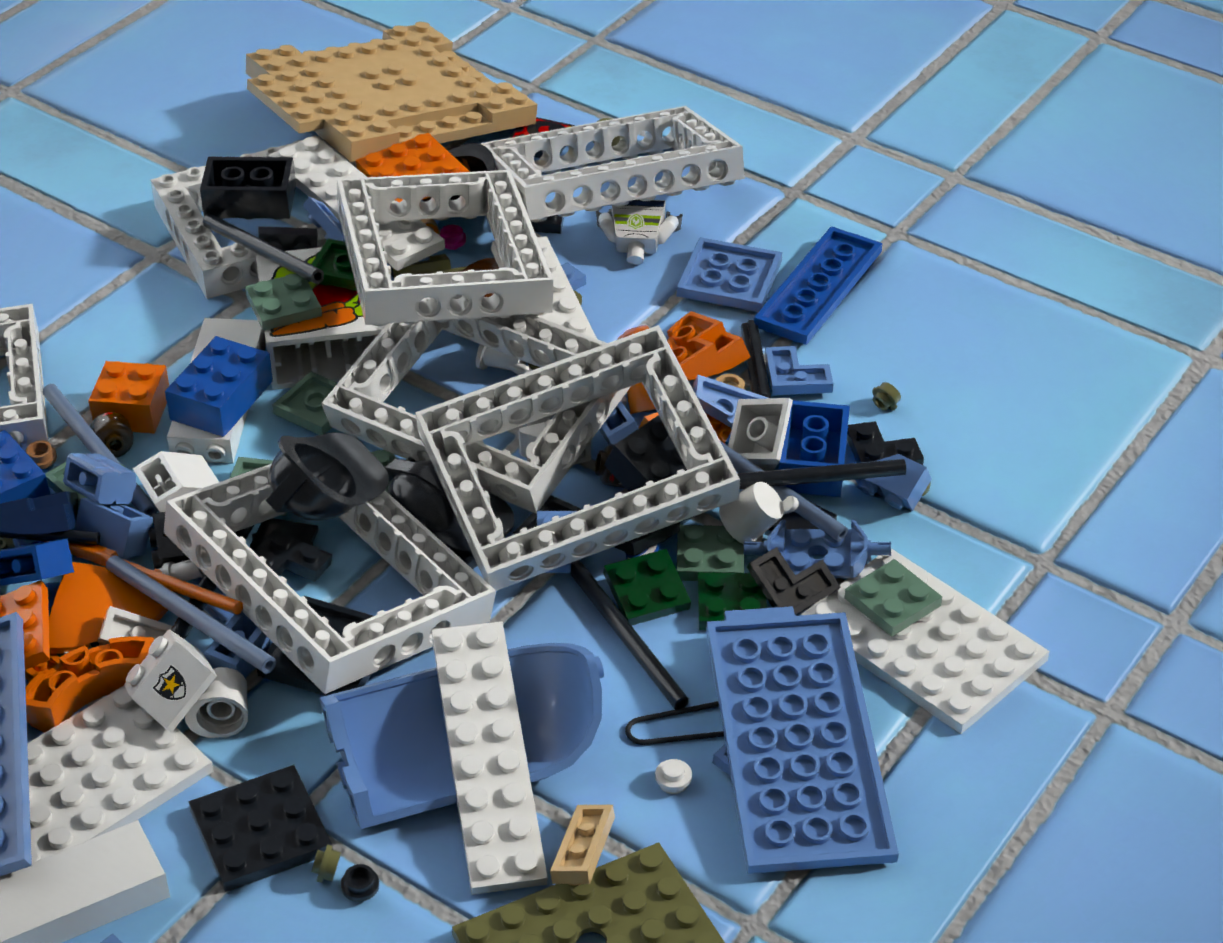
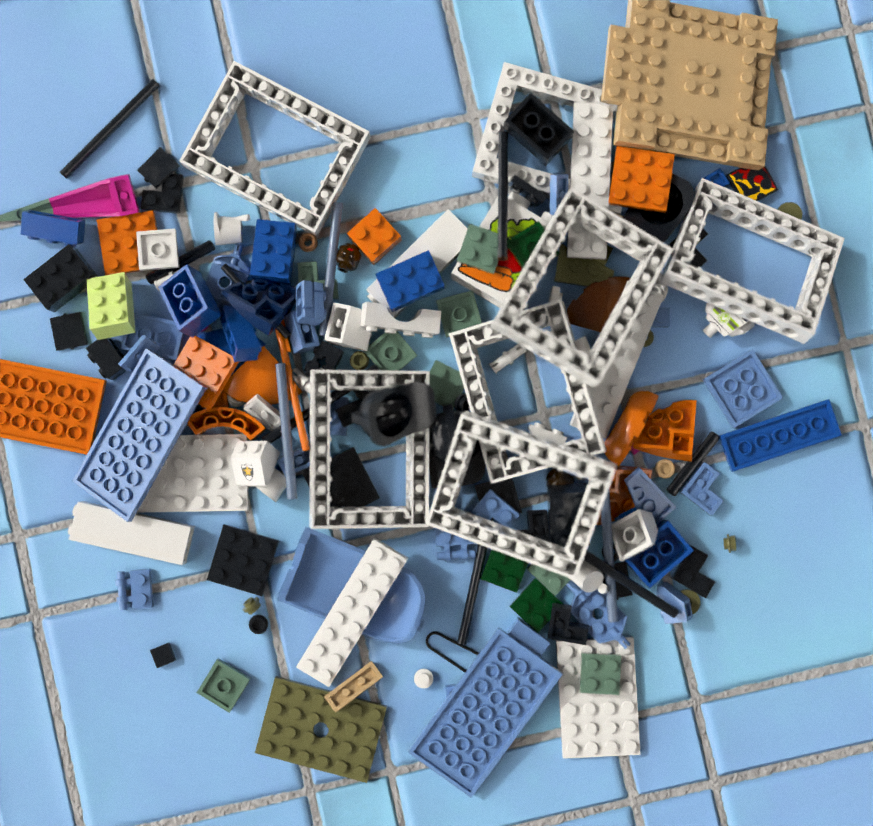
camera: 45 degrees right, 45 degrees up
(211, 442) = (376, 316): none -> white arch
(425, 395) = (507, 358): none -> white pin
(545, 603) = (447, 539): none -> medium blue plate

